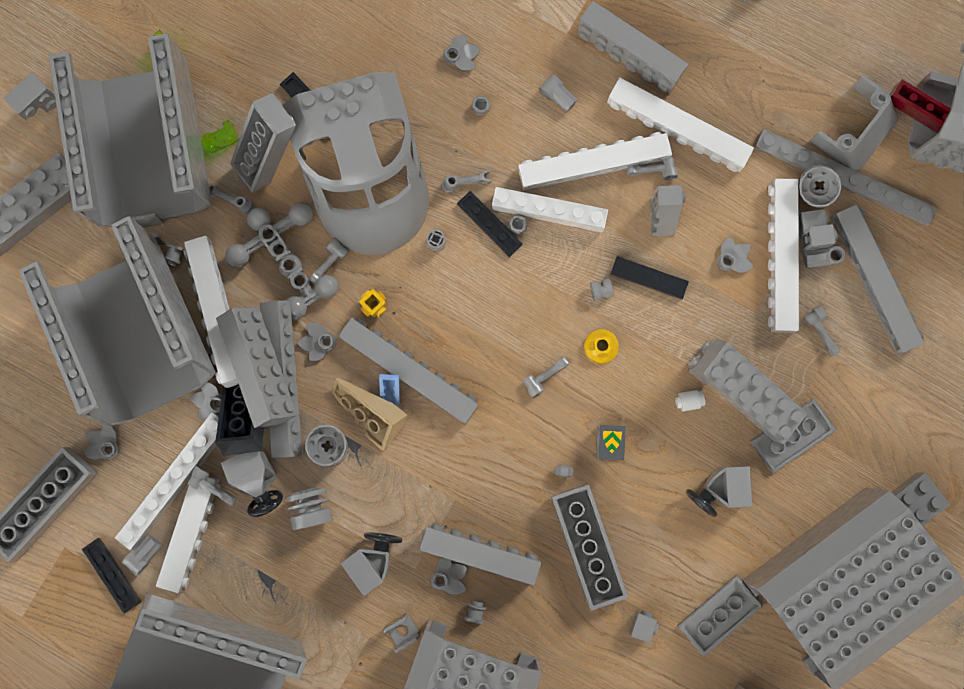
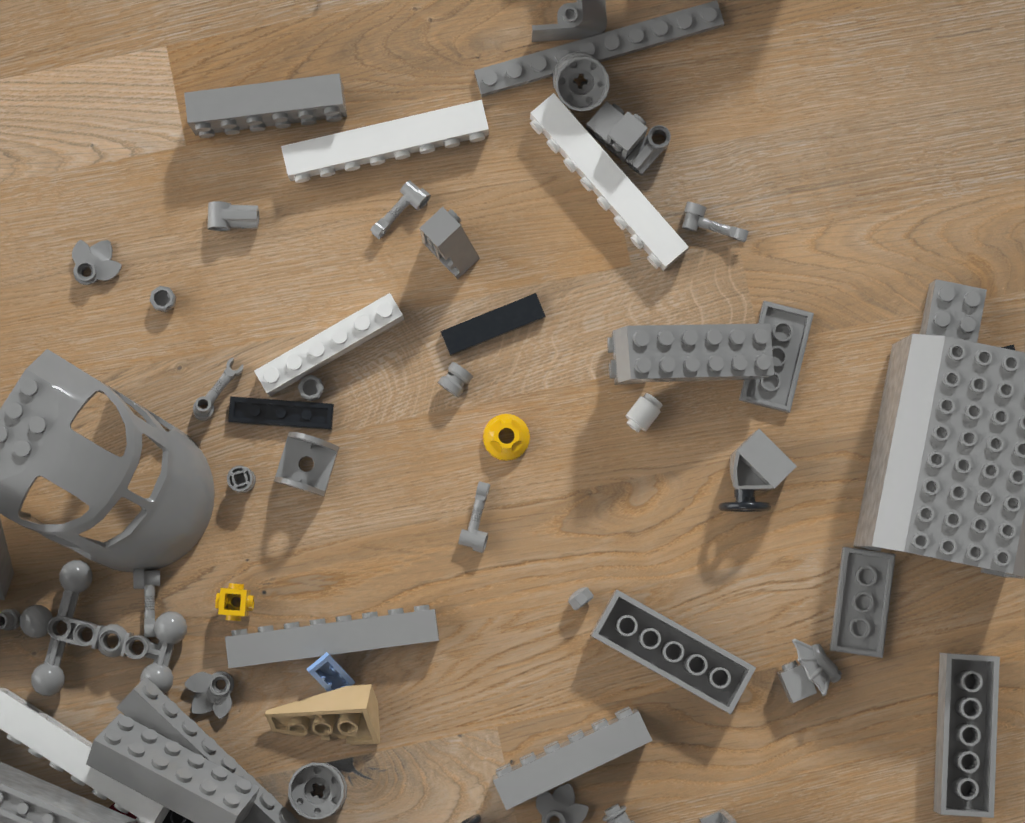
camera: 50 degrees left, 0 degrees up
(492, 263) = (300, 446): none -> light grey hose
(594, 161) = (331, 255): white brick -> none
(610, 442) = (602, 527): piece -> none
(663, 627) = (817, 665): none -> light grey arm
(736, 255) = (559, 223): light grey plate -> none
(877, 279) = (721, 125): light grey brick -> none

